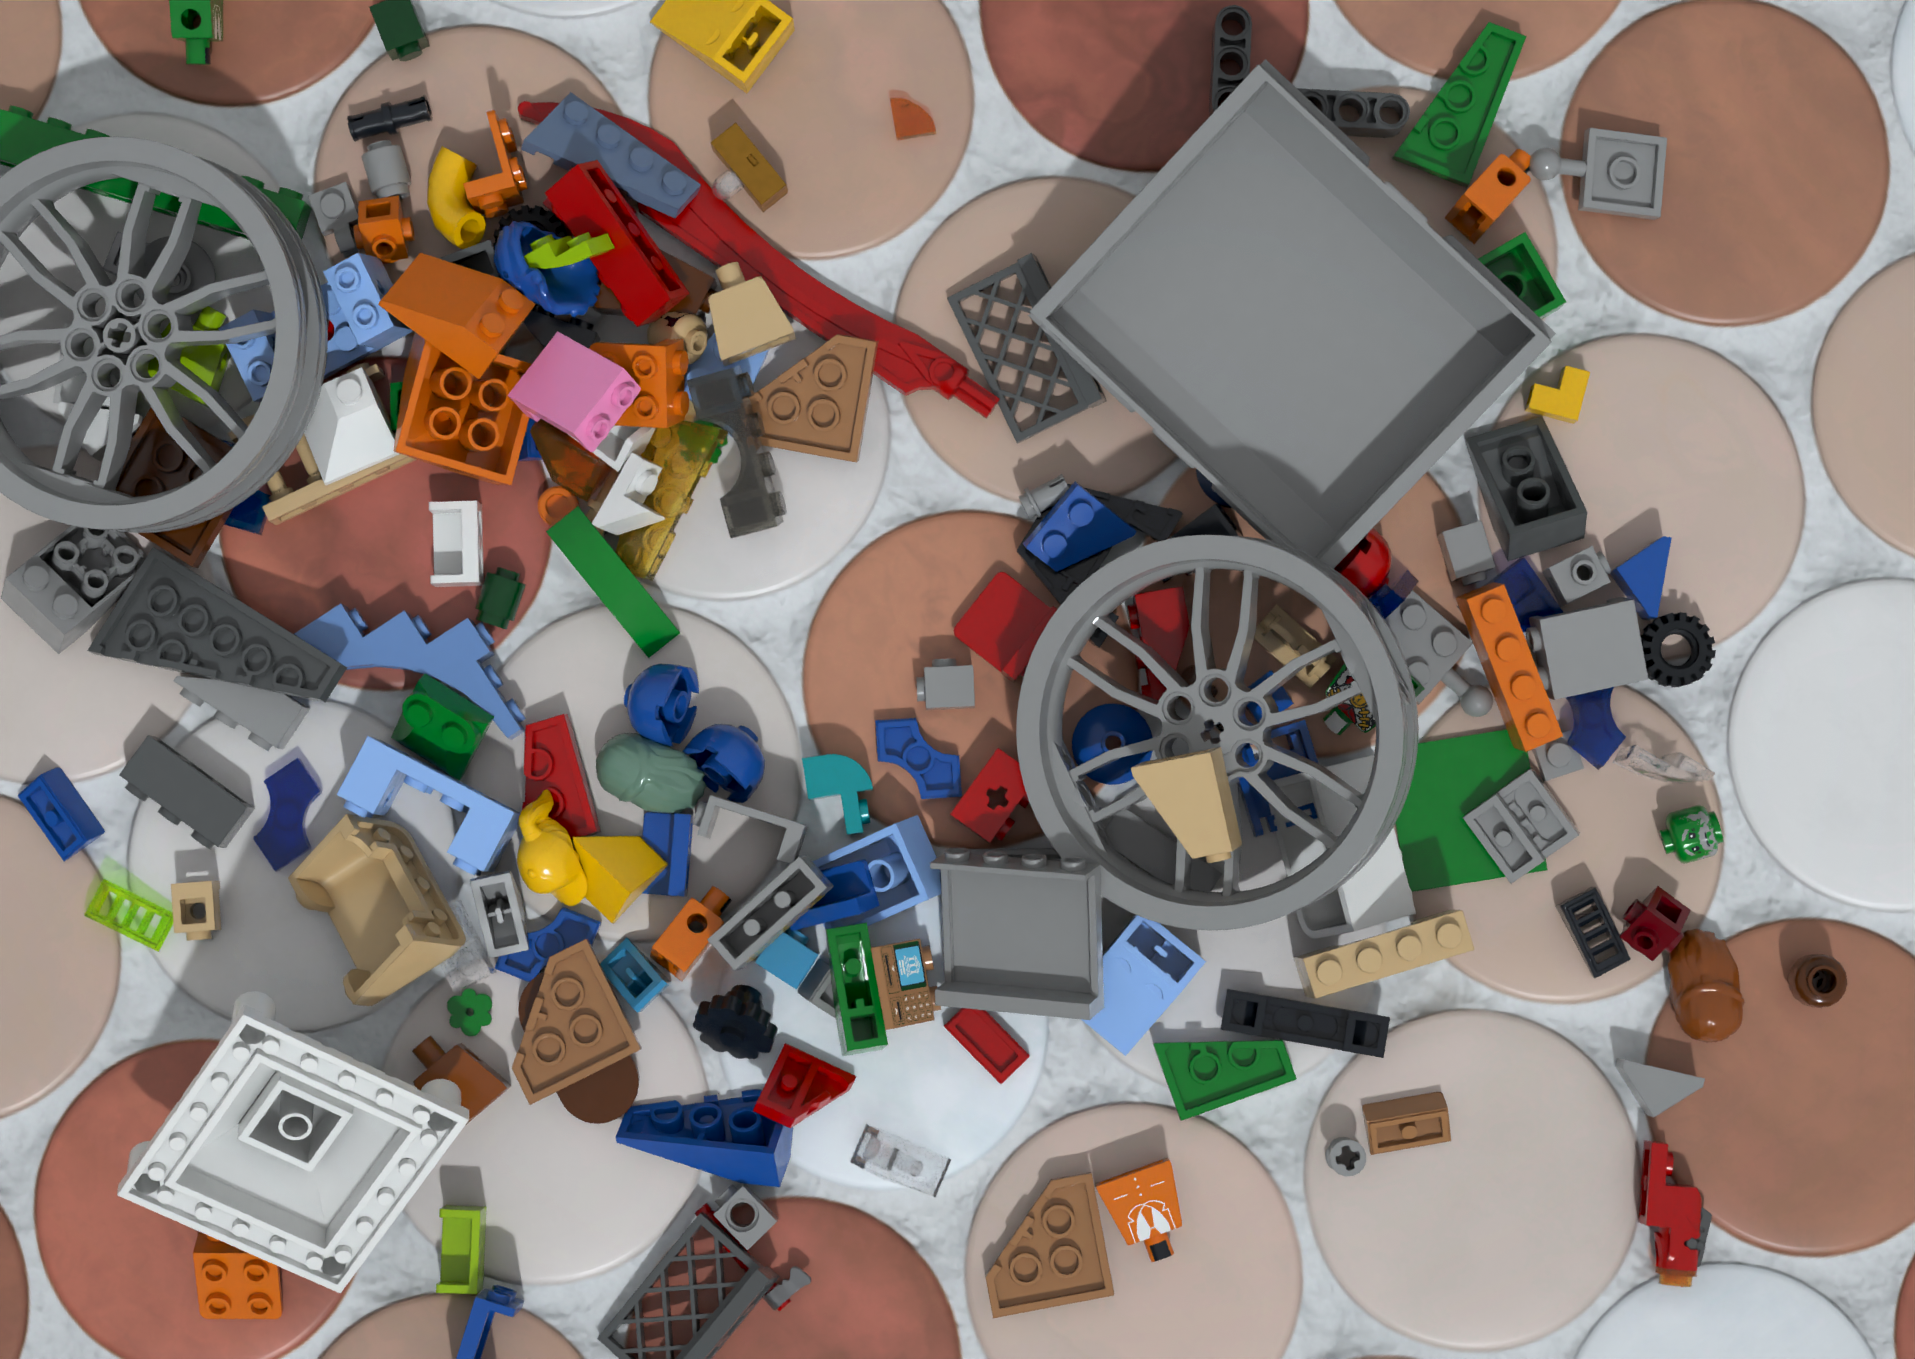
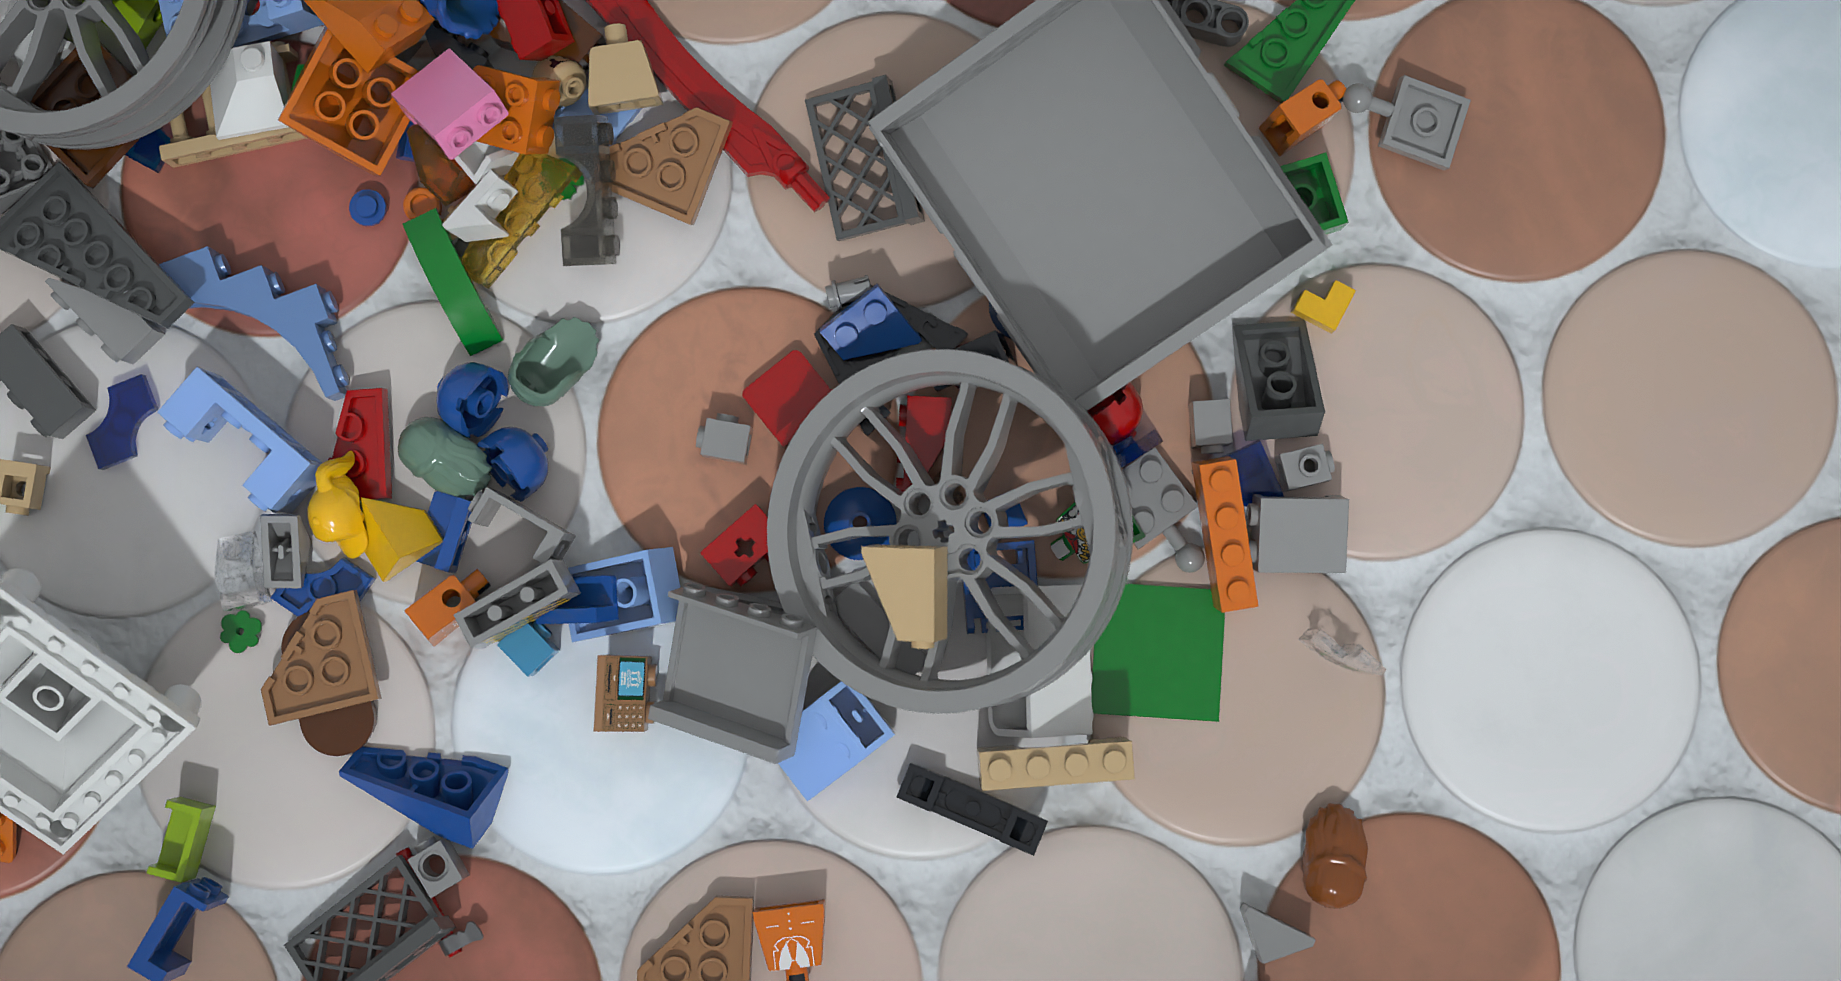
camera: 15 degrees right, 0 degrees up
(380, 903) = (181, 518): tan windscreen -> none
(441, 726) = (271, 374): green slope -> none
(457, 543) = (326, 218): white panel -> none
(476, 1079) = (221, 688): dark orange torso -> none
(500, 522) = (368, 207): none -> blue plate
(500, 598) = (351, 274): dark green brick -> none
(634, 975) = (391, 633): dark azure slope -> none
(736, 1023) = (469, 694): black plant -> none
(743, 644) = (553, 362): none -> sand green hair
(800, 1087) = (512, 764): red wing -> none
(818, 987) = (560, 682): light grey slope -> none
(837, 776) = (612, 497): teal brick -> none
(855, 990) = (579, 688): green slope -> none
(900, 1160) = (586, 849): clear slope -> none
(933, 771) = (676, 483): blue tile -> none
(987, 1042) = (688, 762): red tile -> none
(1221, 1072) = (888, 835): green wing -> none
(1289, 640) = (1033, 464): tan hinge -> none
(1356, 1163) = (990, 942): light grey bush -> none
(1406, 1122) = (1043, 917): medium nougat slope -> none
(1521, 825) = (1204, 677): light grey slope -> none
(1557, 758) = (1251, 624): light grey plate -> none
(1566, 911) = (1238, 756): black slope -> none
(1594, 729) = (1288, 605): clear blue tile -> none
(1643, 577) = (1362, 482): blue slope -> none
(1654, 923) = (1302, 791): dark red brick -> none
(1691, 834) = (1353, 719): green head -> none
(1699, 642) = (1398, 548): black tyre -> none
(1831, 980) = (1448, 872): reddish brown head -> none

